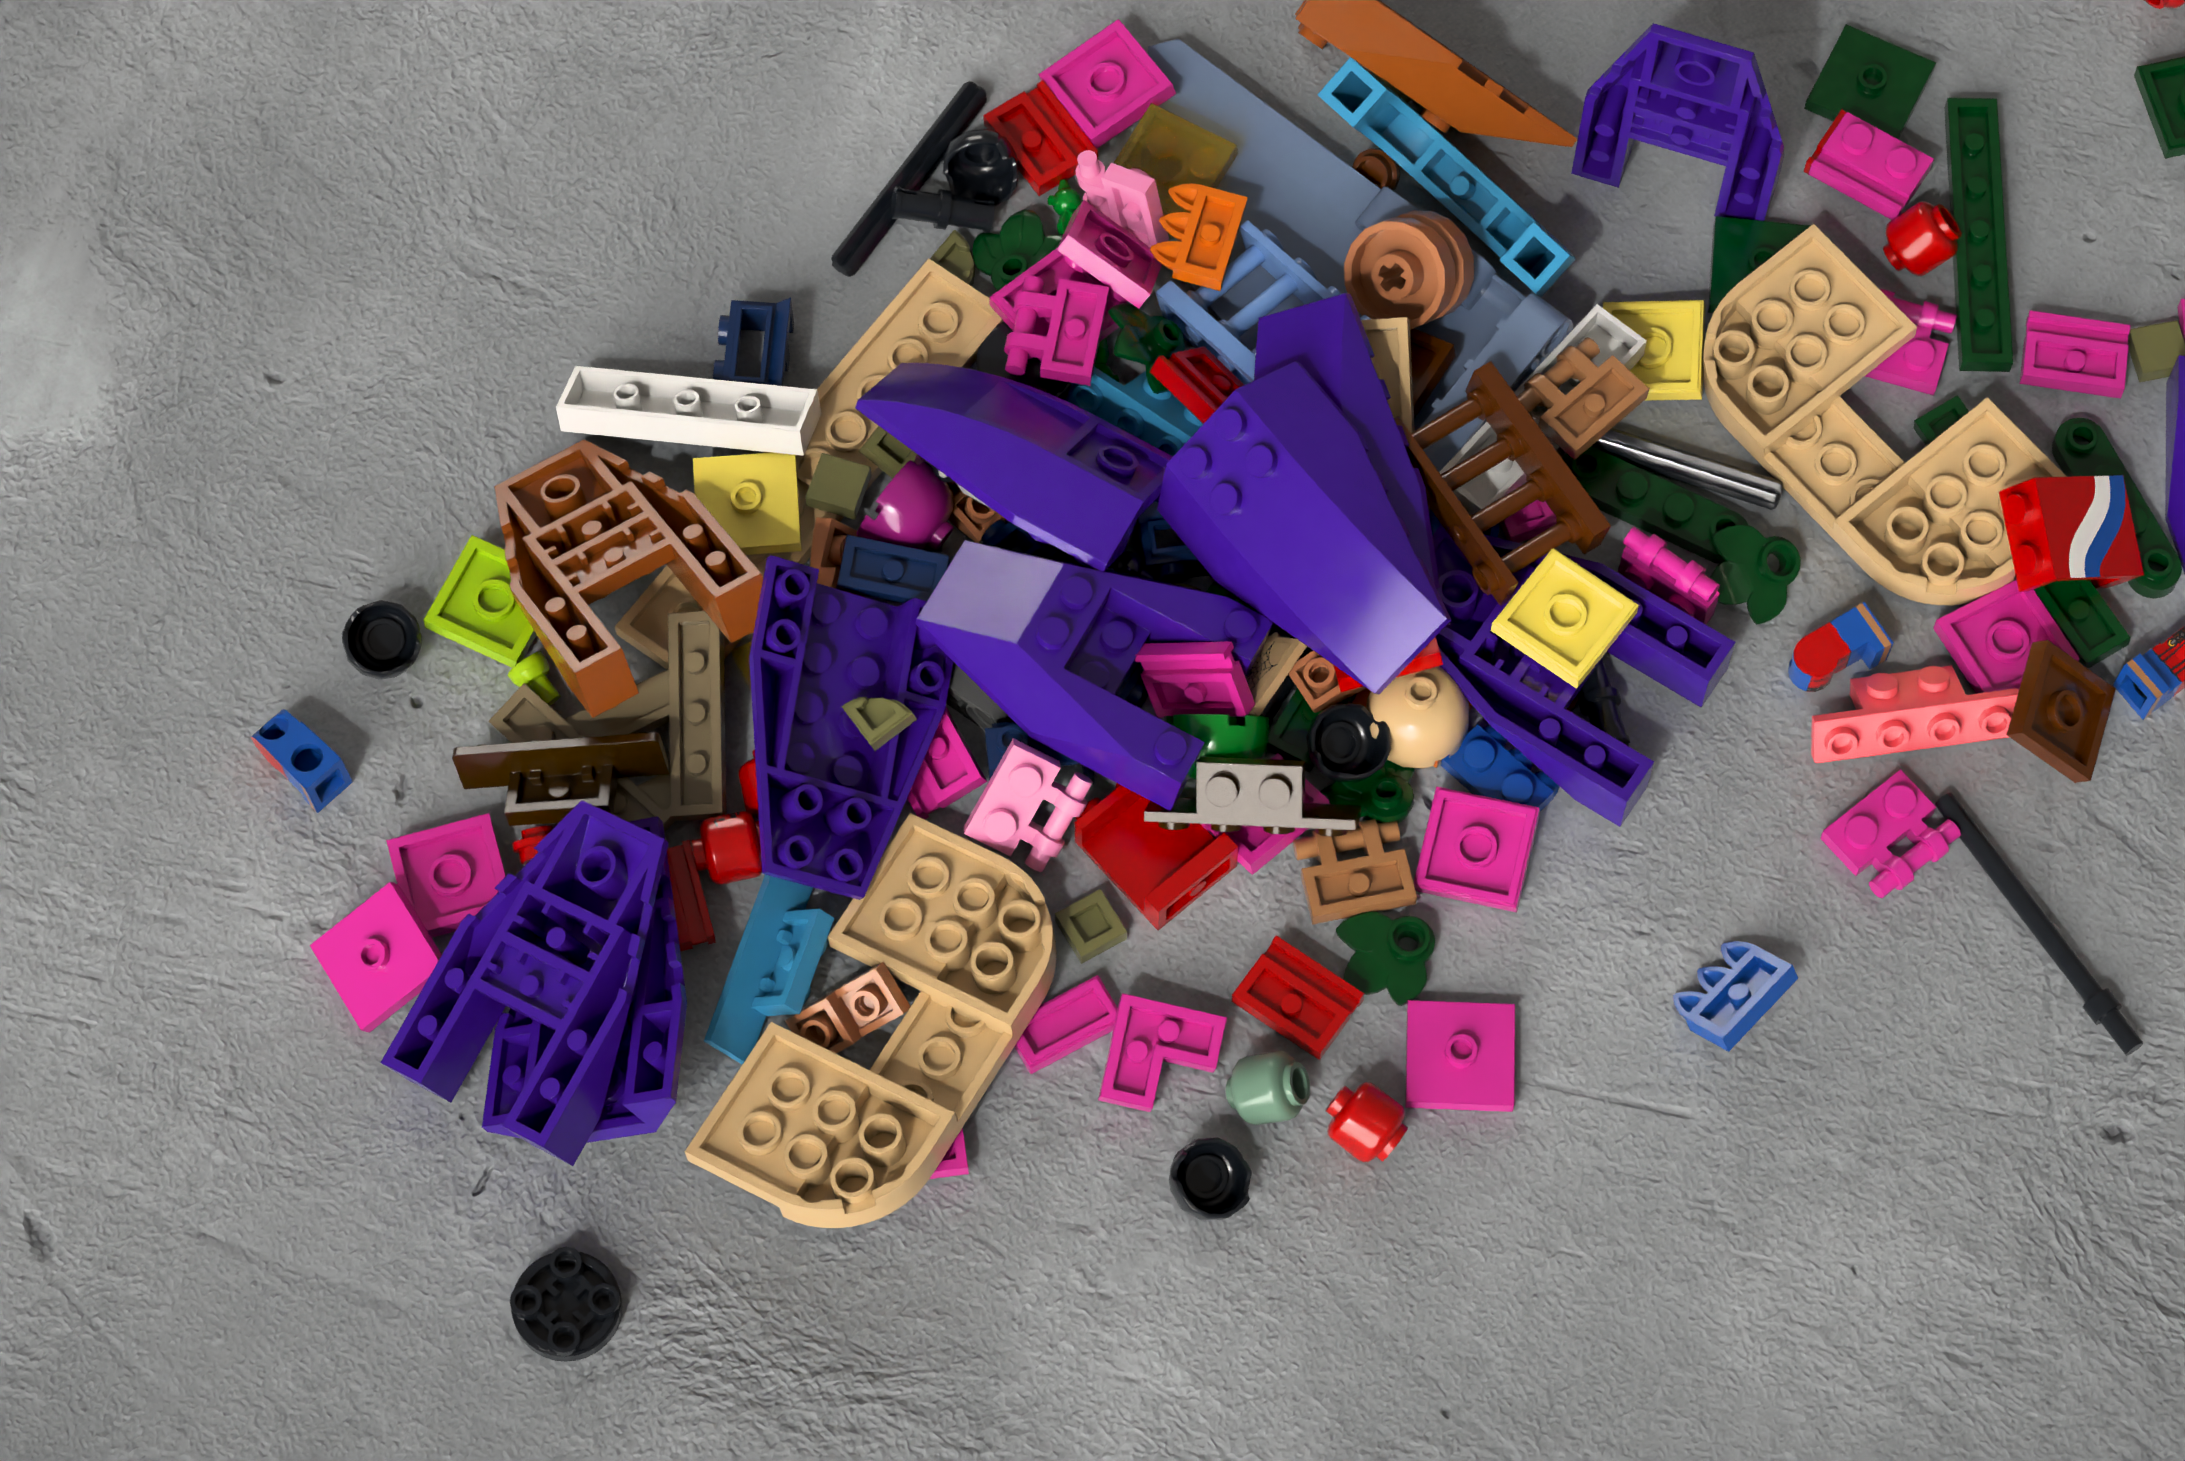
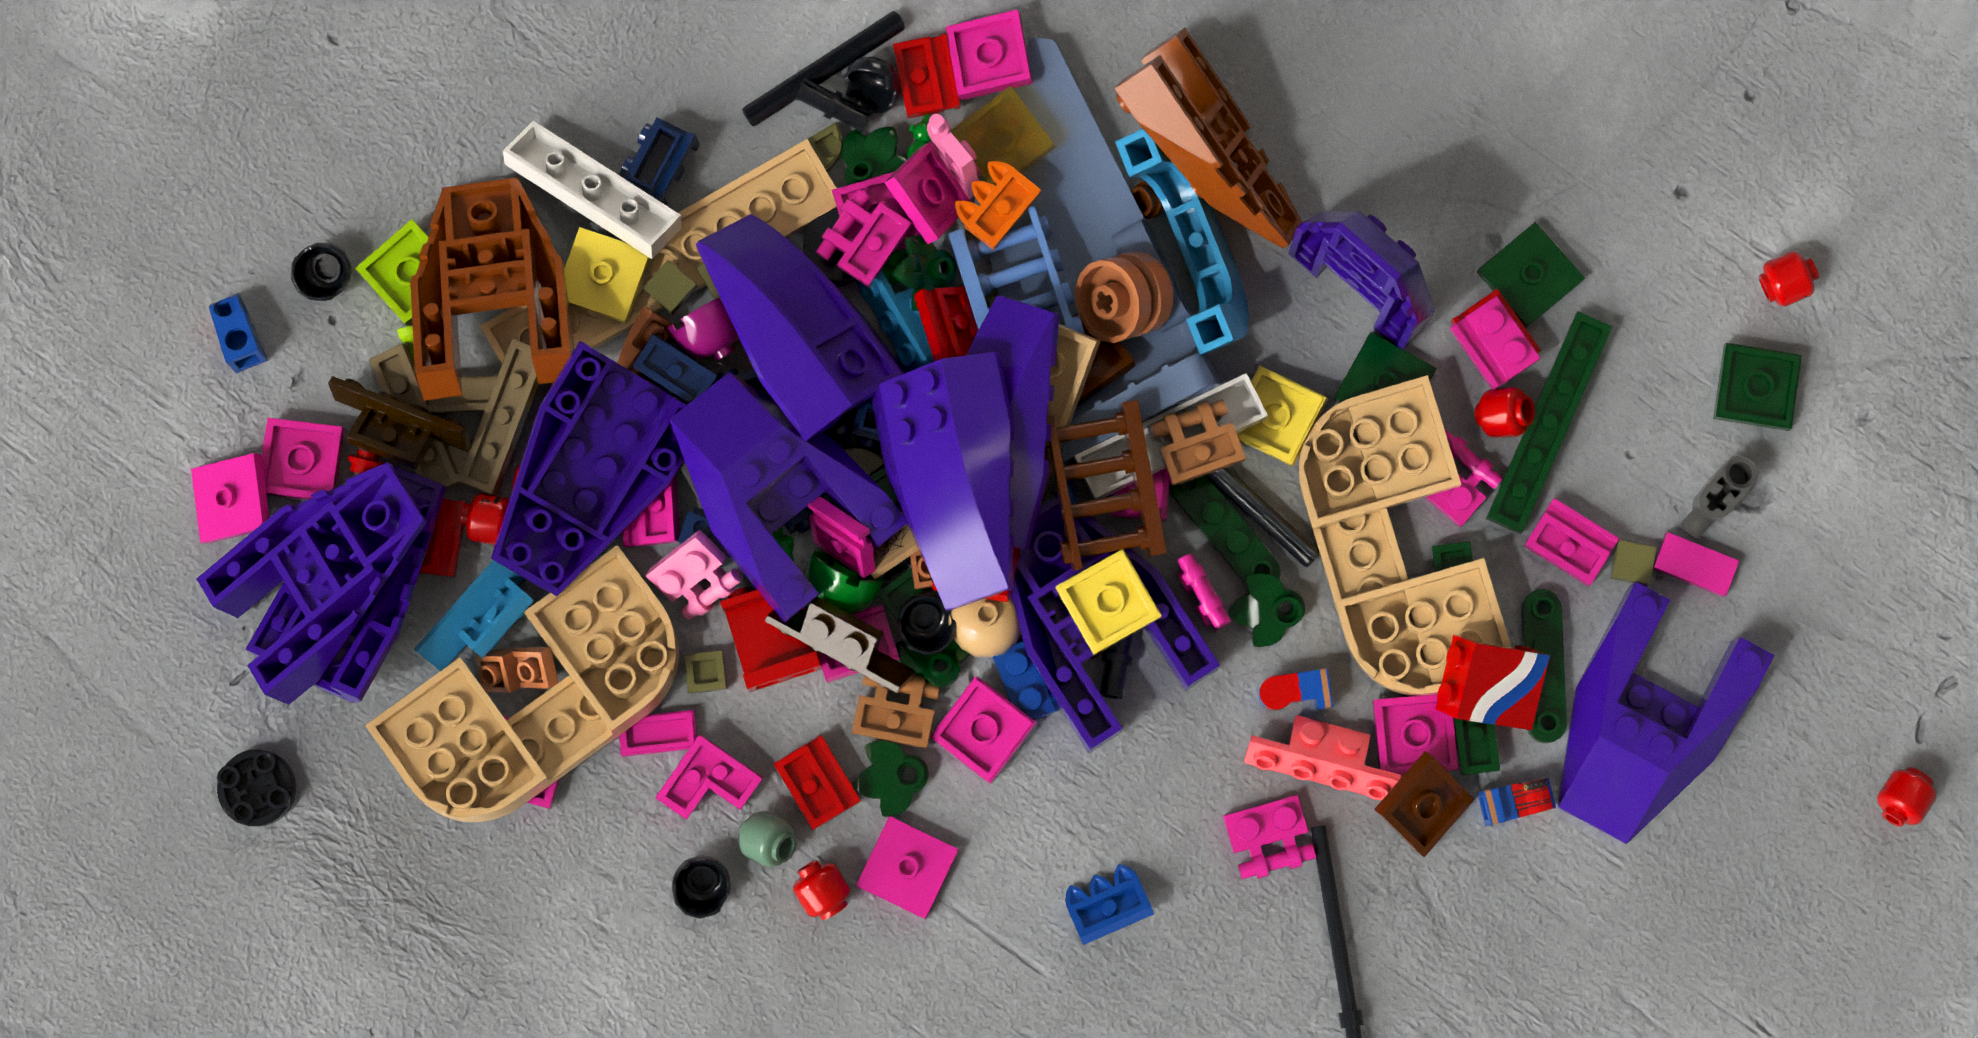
camera: 30 degrees right, 15 degrees up
(878, 718) = (616, 477): olive tile -> none

